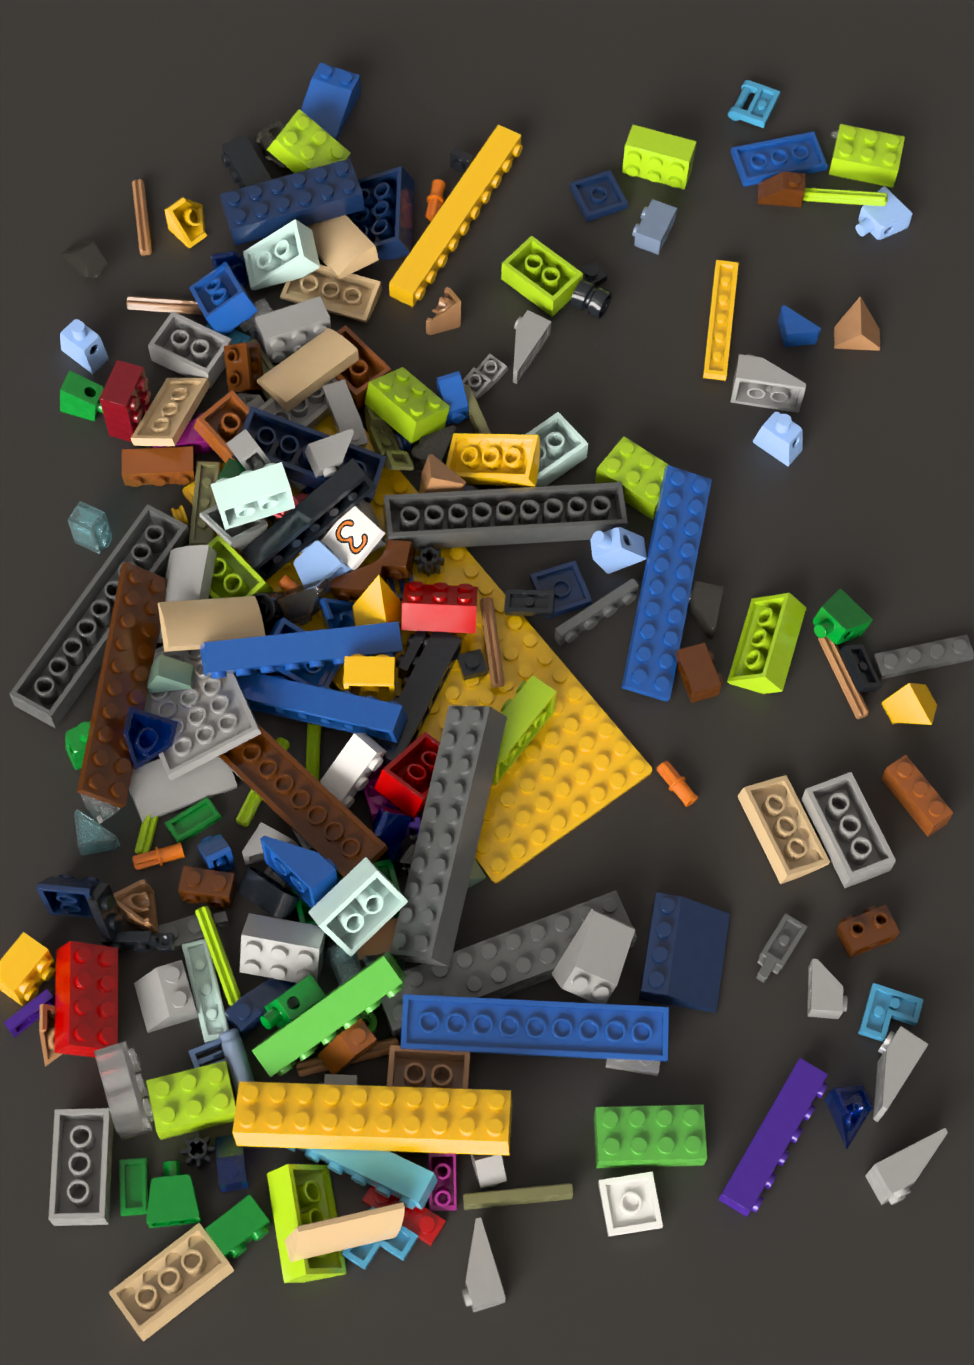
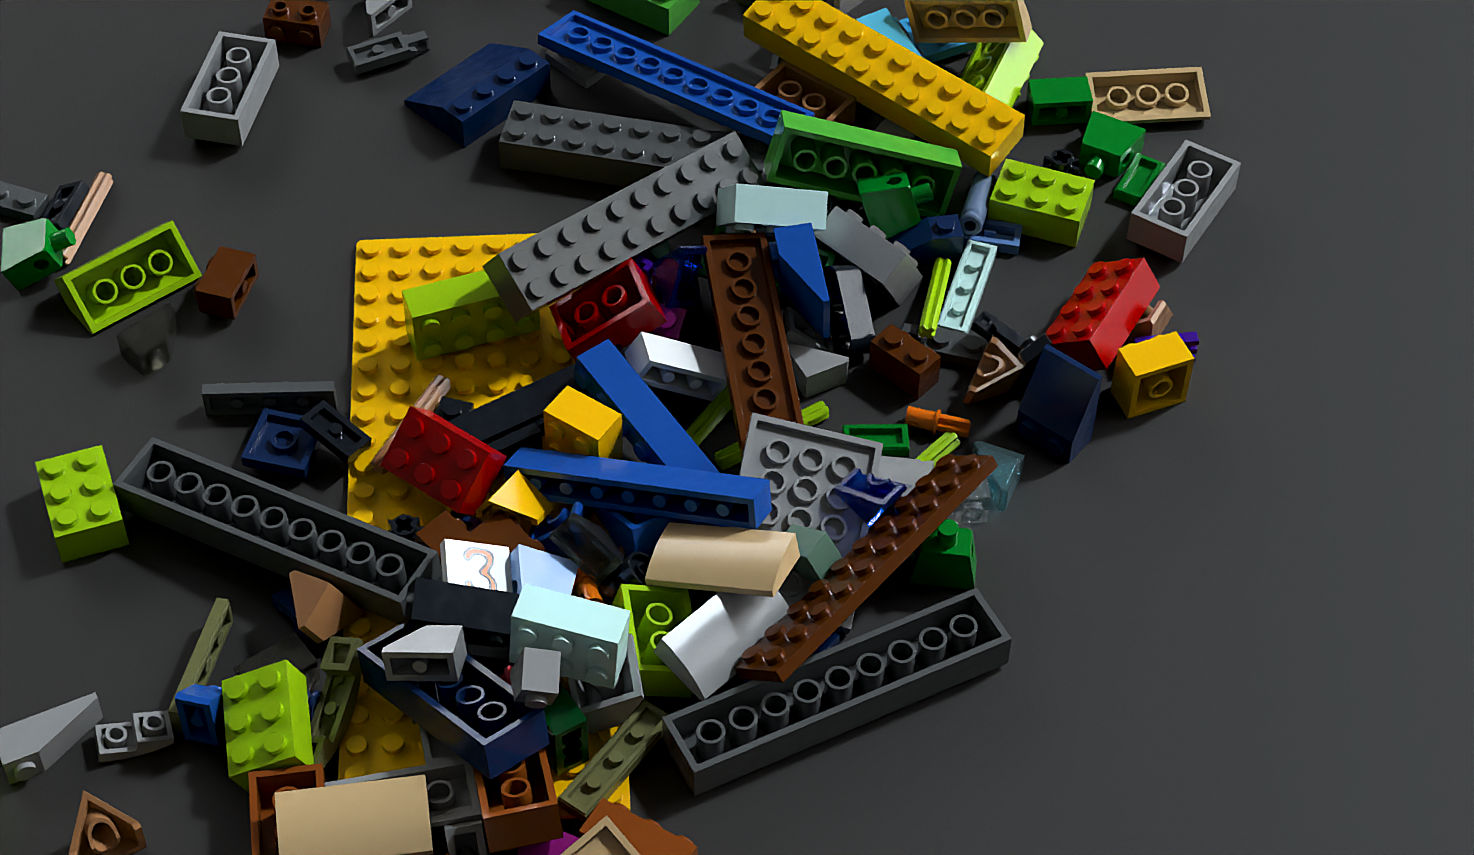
camera: 145 degrees left, 15 degrees down
(90, 527) = (785, 797): clear light blue brick -> none
(125, 1090) = (1105, 221): clear brick -> none
(165, 997) = (1013, 293): light grey slope -> none
(180, 514) = (658, 768): yellow bush -> none
(216, 853) = (876, 375): blue slope -> none
(231, 1164) = (1038, 138): clear blue slope -> none
(344, 411) = (361, 739): light grey slope -> none
(495, 459) = (231, 588): yellow slope -> none
(559, 448) = (158, 582): light aqua brick -> none
(595, 958) = (585, 91): light grey slope -> none
(617, 549) = (189, 422): light blue torso -> none
(666, 584) = (163, 375): blue plate -> none
(677, 783) = (346, 213): orange axle -> none
(783, 828) = (285, 131): tan slope -> none
(911, 705) = (52, 155): yellow slope -> none
(916, 795) = (135, 85): dark orange brick -> none

